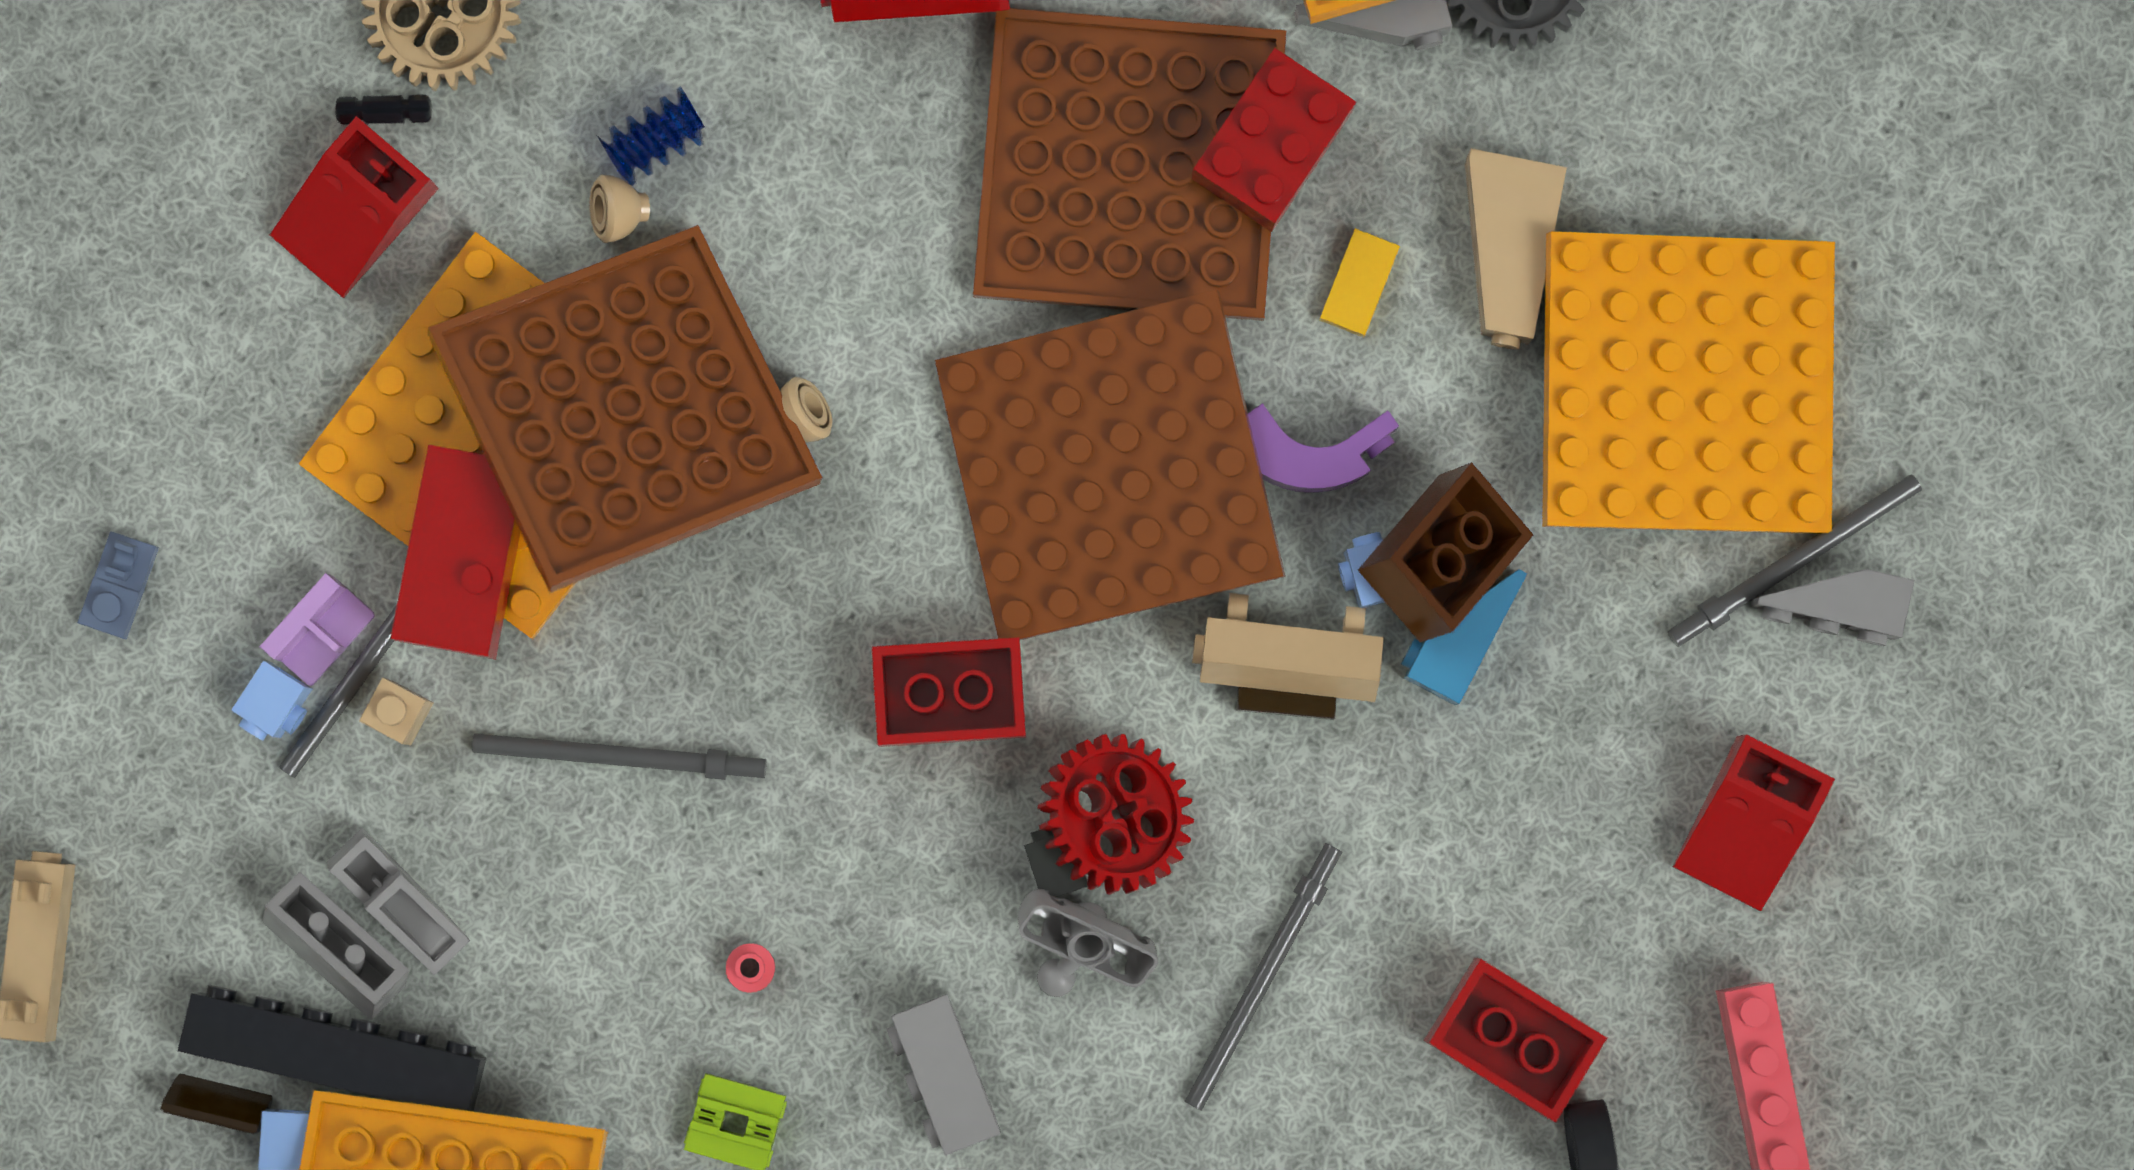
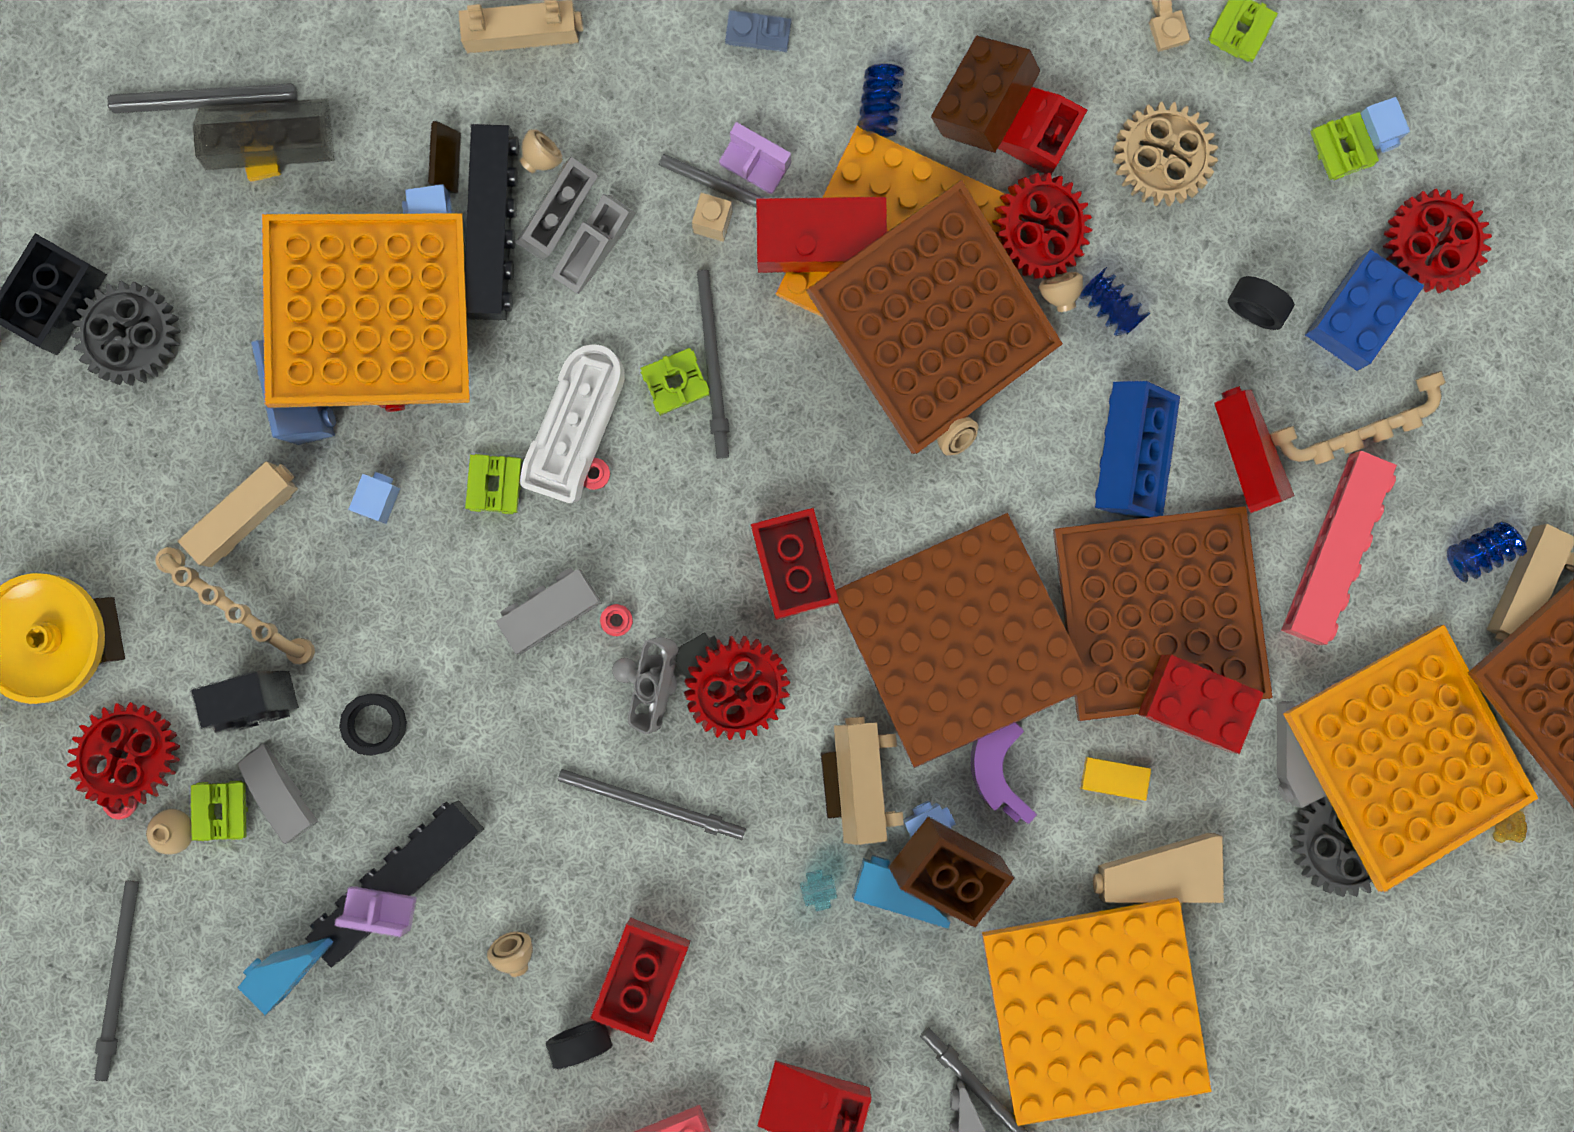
camera: 80 degrees right, 0 degrees up
(239, 956) = (539, 152): none -> tan brick
(267, 422) = (879, 99): none -> clear blue piece
(272, 702) = (703, 139): light blue brick -> none
(296, 261) = (986, 93): none -> reddish brown brick
(384, 109) = (1094, 133): black axle -> none
(474, 197) = (1049, 198): none -> red gear
(654, 796) = (691, 390): none -> lime piece
(669, 982) = (574, 424): none -> white piece
(880, 148) = (1137, 449): none -> blue slope
(983, 992) = (605, 620): none -> coral plate
(1436, 752) = (818, 890): none -> clear light blue gear

